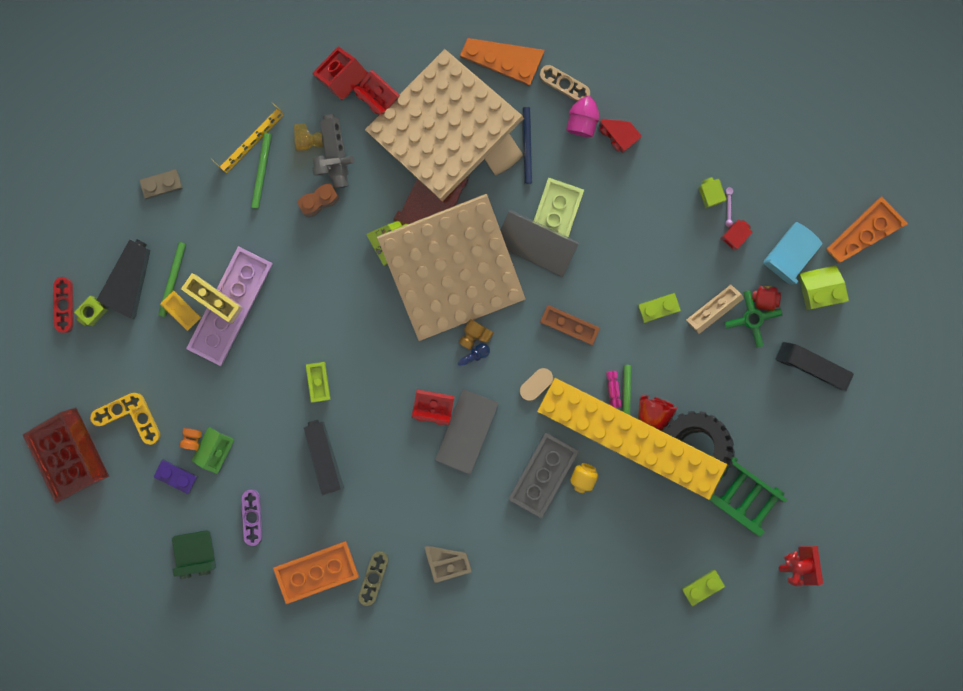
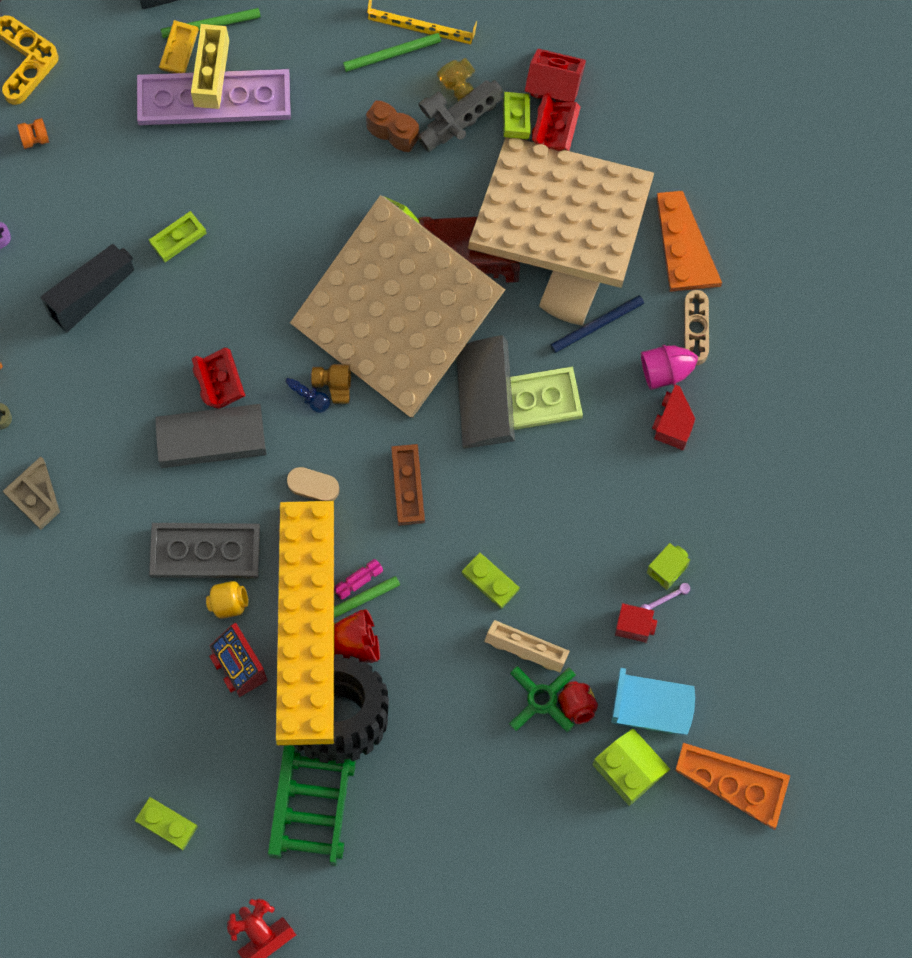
camera: 65 degrees right, 15 degrees down
(212, 450) = (32, 165): bright green panel -> none
(355, 115) = (516, 115): none -> lime plate
(629, 492) = (238, 661): none -> slope
(814, 365) = (526, 809): black beam -> none

